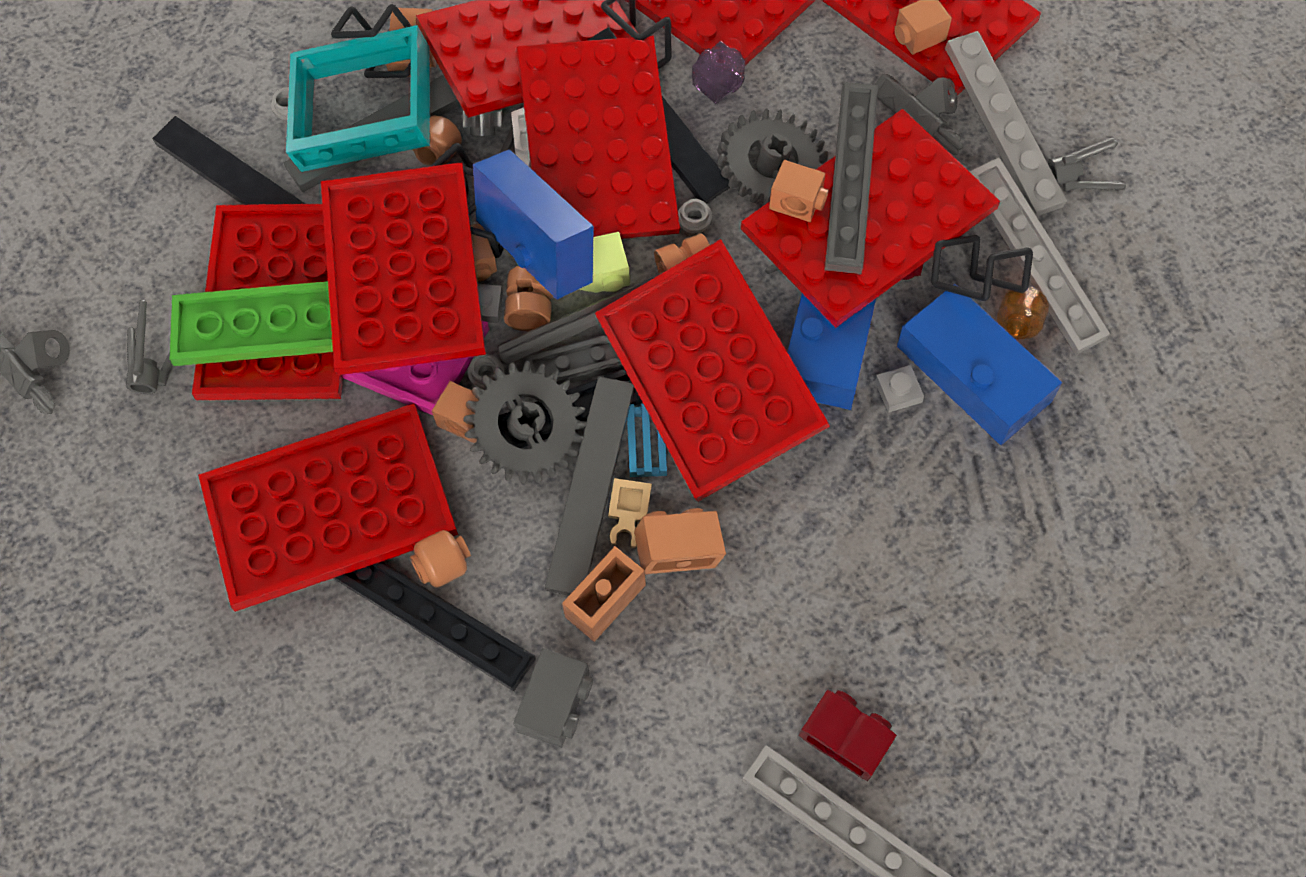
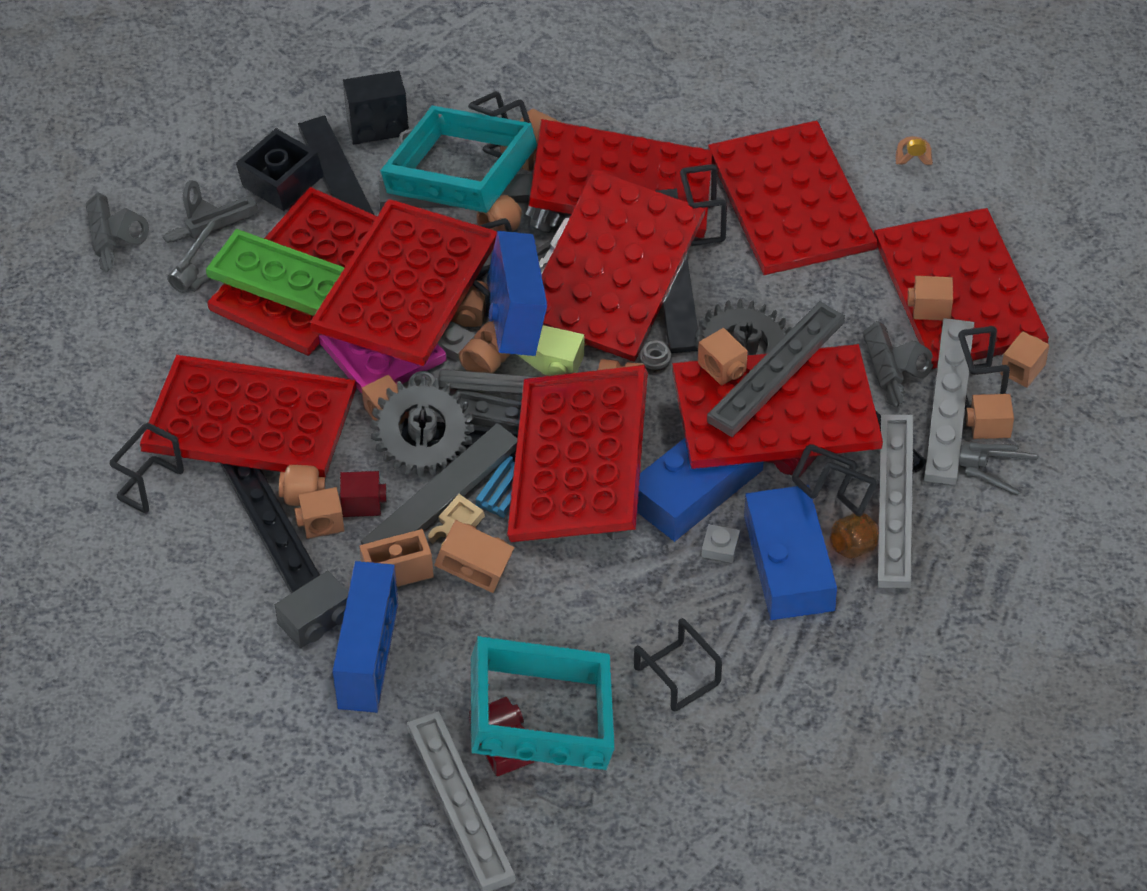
camera: 30 degrees right, 15 degrees down
(123, 294) = (201, 213): none -> dark grey piece
(170, 201) = (279, 169): none -> black brick
(229, 81) = (375, 107): none -> black brick
(244, 658) = (137, 476): none -> black piece
(480, 578) = (320, 513): none -> nougat brick
(509, 531) = (361, 493): none -> dark red brick
(637, 705) = (365, 637): none -> blue brick
(718, 72) = (748, 262): clear purple brick -> none
(850, 761) = (549, 663): none -> teal window
(987, 583) = (650, 661): none -> black piece
(1039, 45) = (1025, 358): none -> nougat brick
(1052, 70) = (983, 368): none -> black piece
(1053, 119) = (990, 416): none -> nougat brick

